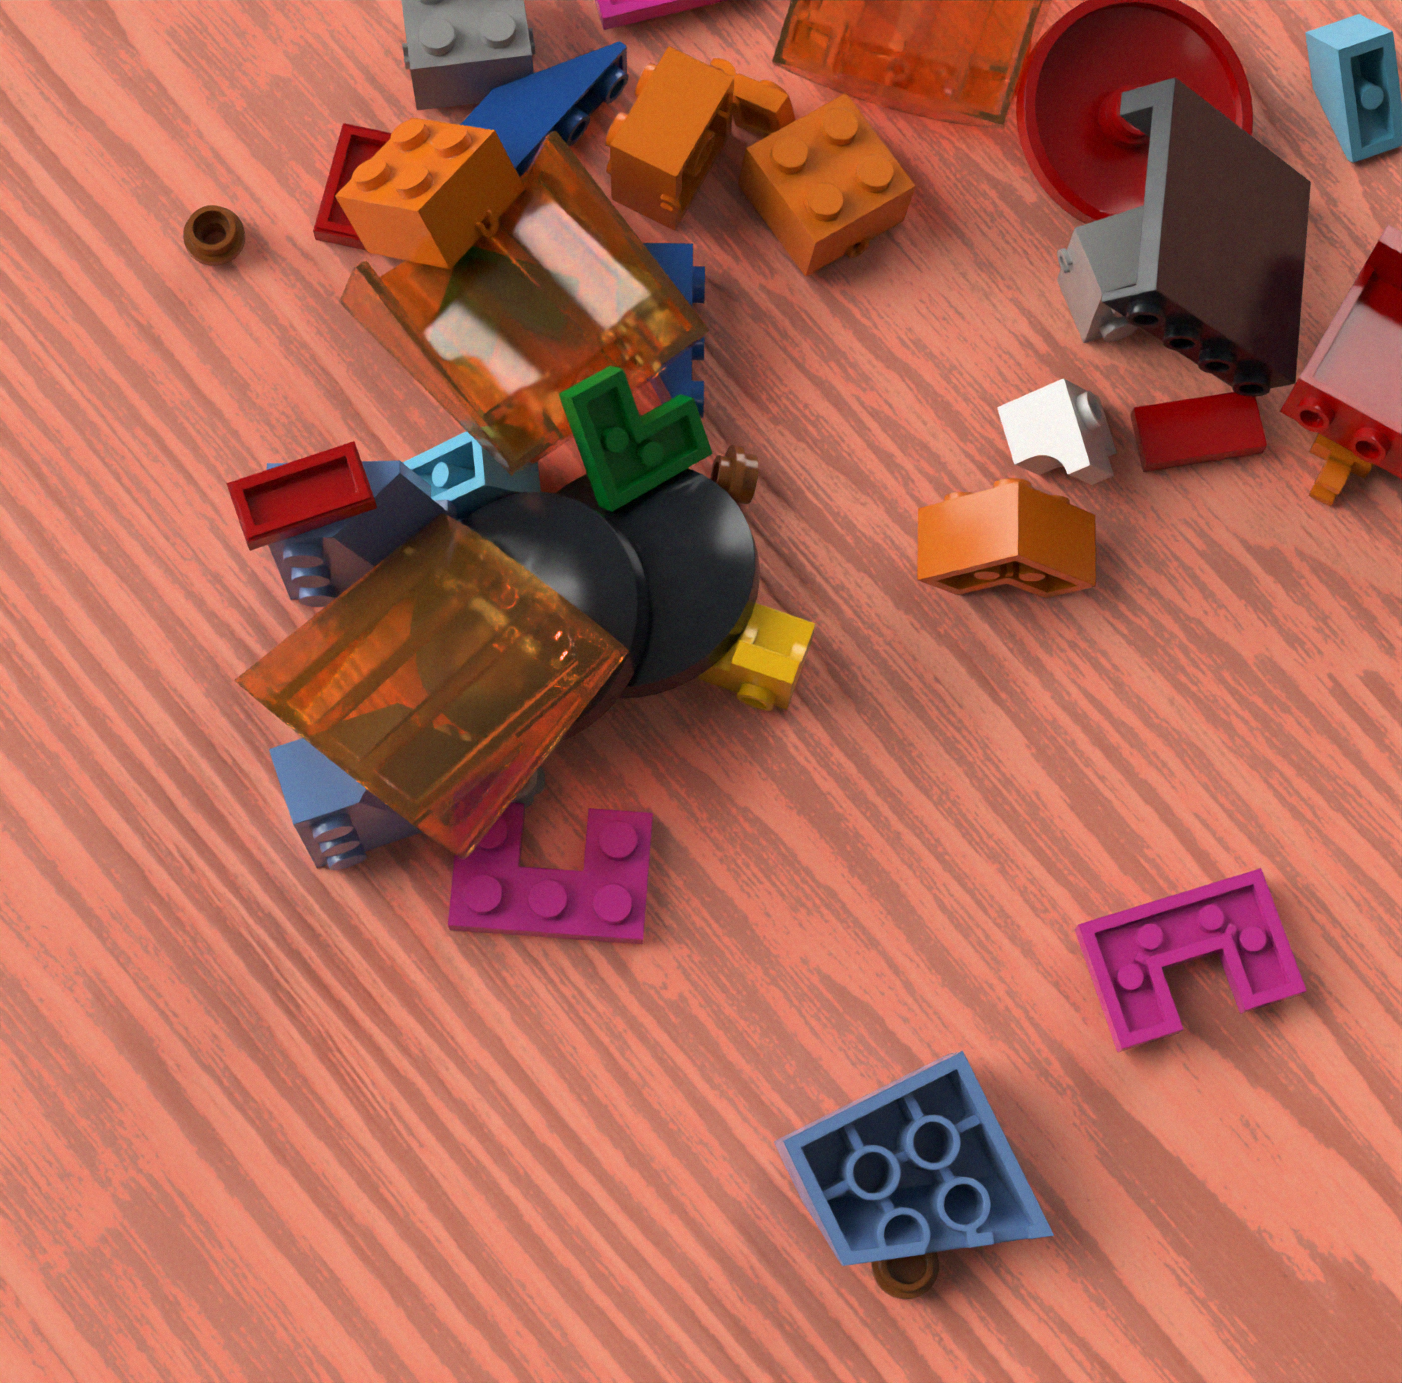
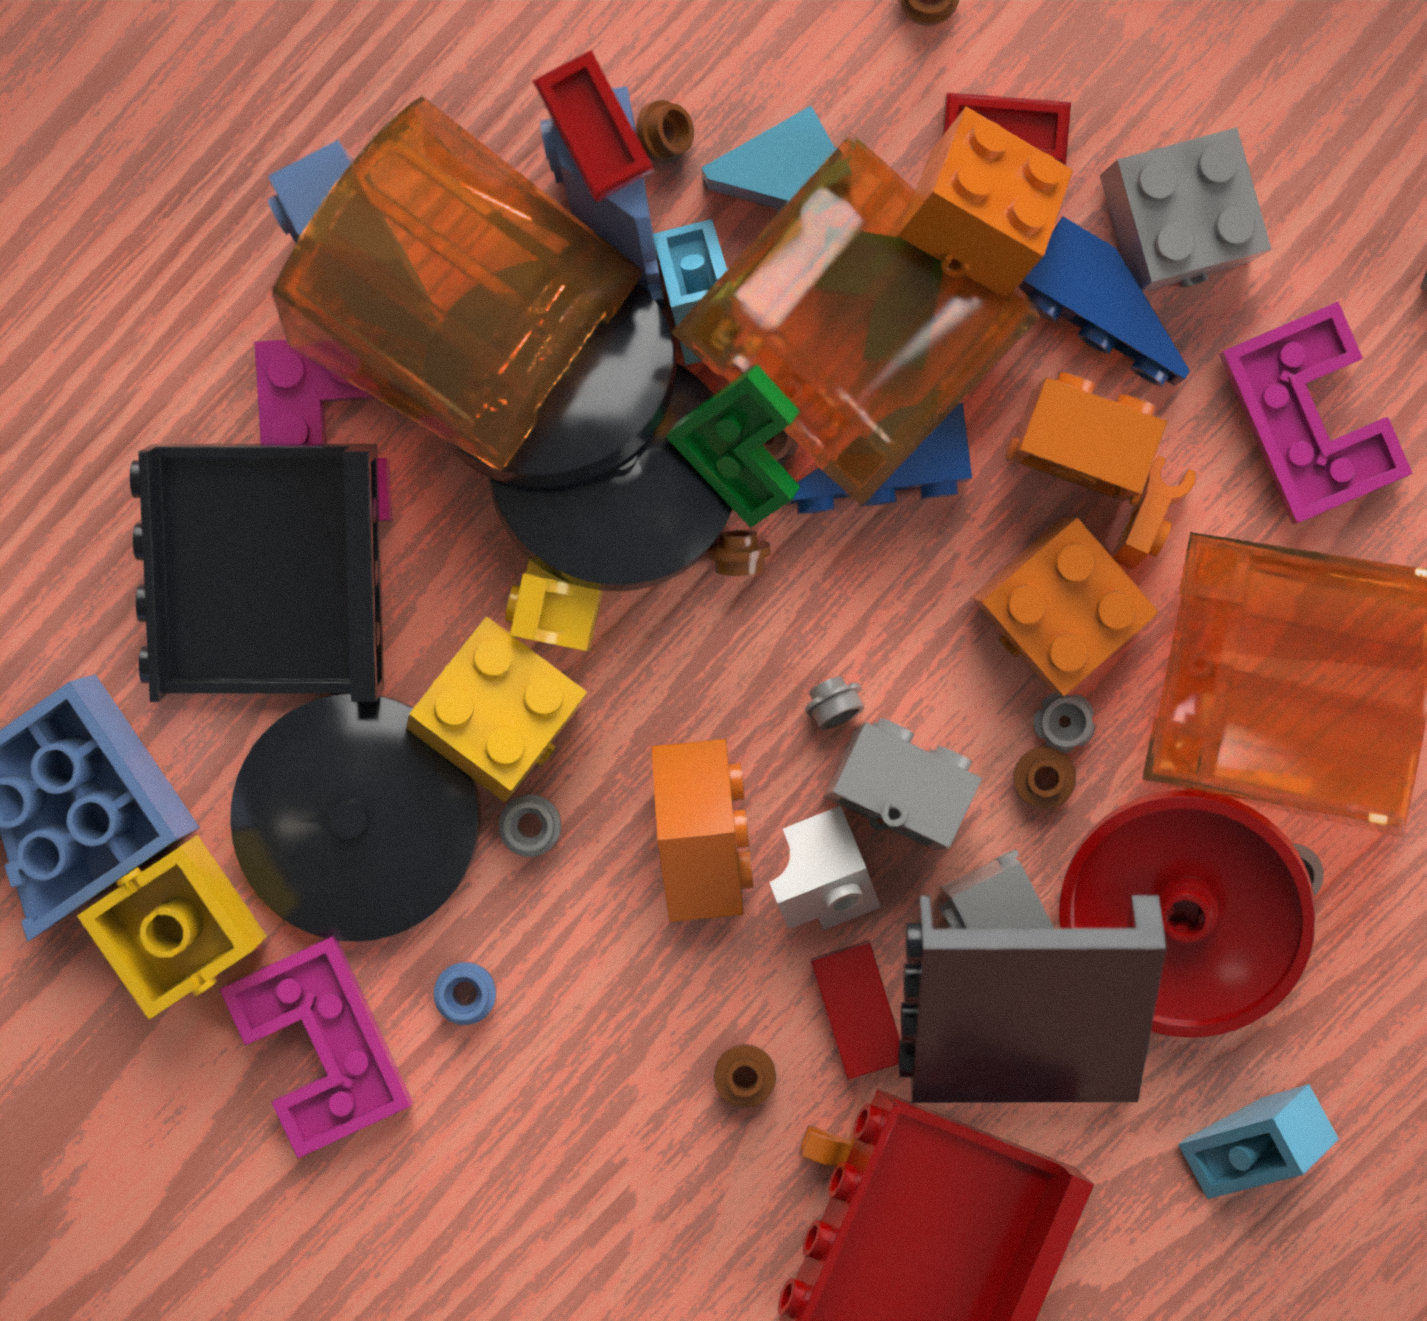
camera: 85 degrees right, 15 degrees up
(359, 384) = (772, 163): none -> medium azure slope
(687, 939) = (259, 569): none -> black panel
(863, 722) = (496, 709): none -> yellow brick
(893, 410) = (834, 702): none -> light grey plate
(939, 191) = (1080, 728): none -> light grey plate
(954, 893) = (352, 820): none -> black dish
(984, 342) = (904, 785): none -> light grey brick
(984, 699) = (511, 832): none -> light grey plate
(985, 246) = (1024, 777): none -> dark orange plate
(1056, 1080) = (172, 927): none -> yellow brick
(1159, 790) = (461, 1012): none -> medium blue plate
(1248, 558) = (749, 1056): none -> dark orange plate

